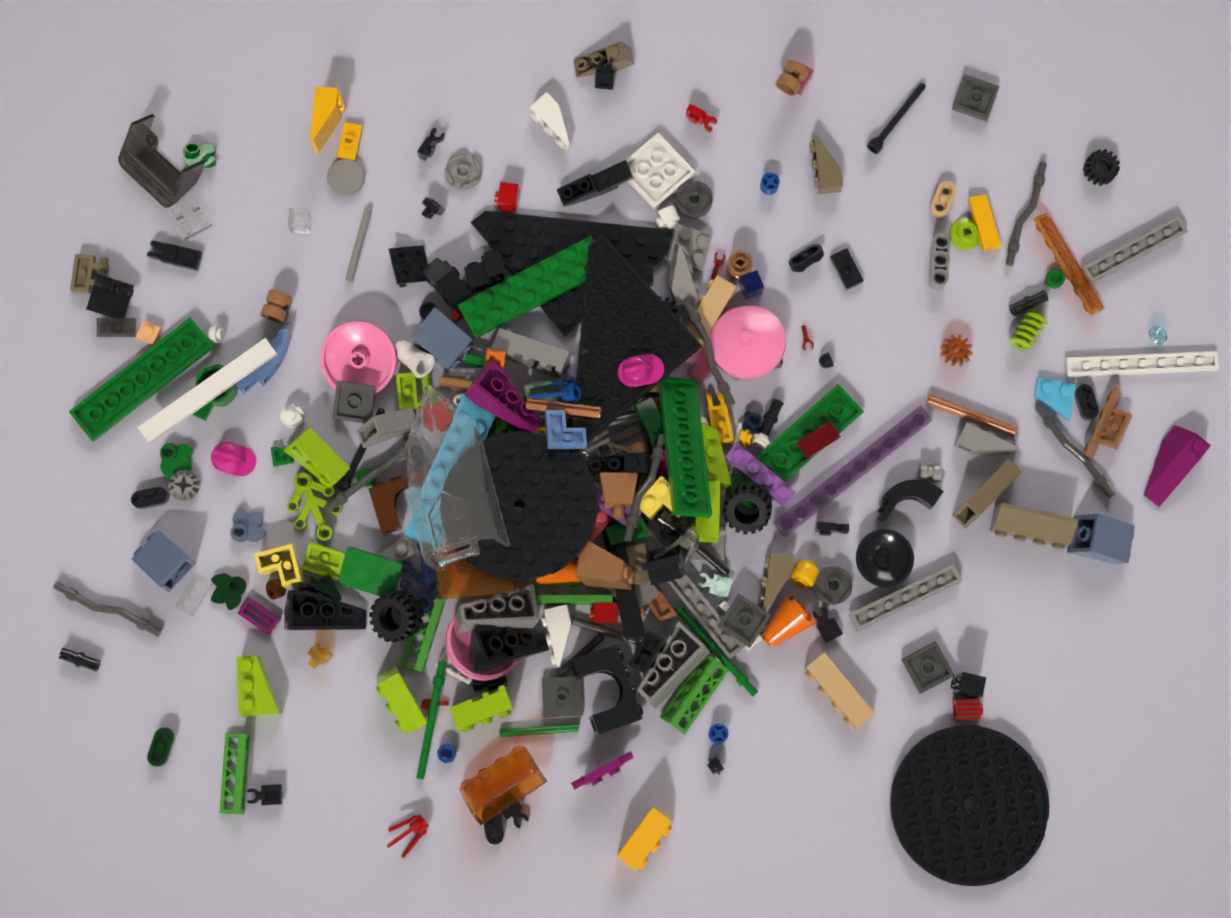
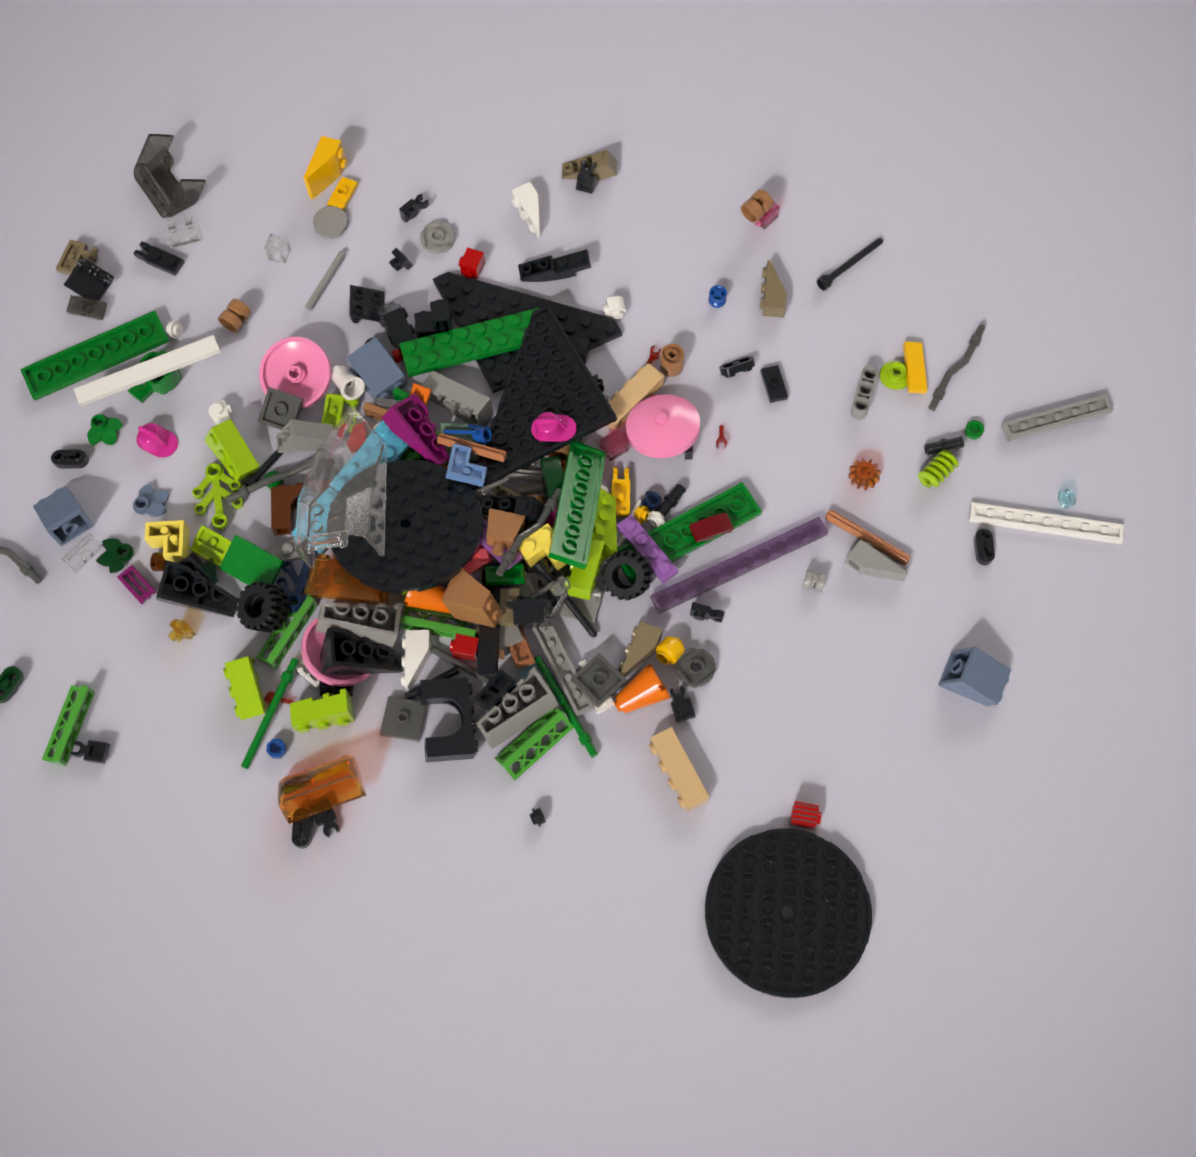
camera: 15 degrees right, 10 degrees down
(149, 333) = (114, 318): light nougat plate -> none
(189, 492) = (107, 460): light grey gear -> none
(196, 153) = (210, 178): green plate -> none
(254, 689) = (110, 648): lime wedge -> none
(266, 371) = (214, 365): medium blue slope -> none
(280, 457) = (199, 447): green tile -> none
(417, 824) = (227, 810): red plant -> none
(539, 730) = (372, 746): green bar -> none
(596, 776) = (424, 795): magenta plate -> none
(645, 839) = (447, 872): yellow slope -> none
(658, 171) = (616, 267): white plate -> none
(680, 279) = (612, 363): light grey slope -> none
(694, 189) = (641, 306): dark grey plate -> none
(696, 245) = (628, 337): light grey plate -> none
(699, 116) = (665, 228): red plate -> none
(718, 585) = (582, 645): light aqua plate -> none
(720, 734) = (546, 782): blue wheel -> none
(723, 386) = (629, 459): dark grey bar -> none
(751, 285) = (679, 379): clear blue brick -> none
(826, 361) = (735, 460): black hinge -> none
(894, 548) = (752, 638): black dish -> none
(905, 597) = (765, 693): light grey plate -> none
(917, 490) = (792, 593): black arch -> none
(927, 667) = (773, 765): dark grey plate -> none
(943, 200) = (878, 340): tan plate -> none
(968, 685) = (810, 788): black brick -> none
(975, 97) = (928, 258): dark grey plate -> none
(986, 493) = (866, 610): dark tan slope -> none
(1033, 525) = (908, 648): dark tan slope -> none
(1056, 395) = (955, 535): medium azure wing -> none
(1068, 263) = (989, 416): clear orange plate -> none
(1100, 480) = (984, 621): dark grey bar -> none
(1110, 427) = (1003, 573): medium nougat bracket -> none
(1113, 168) = (1033, 347): black tyre -> none
(1176, 458) = (1064, 616): magenta wedge -> none

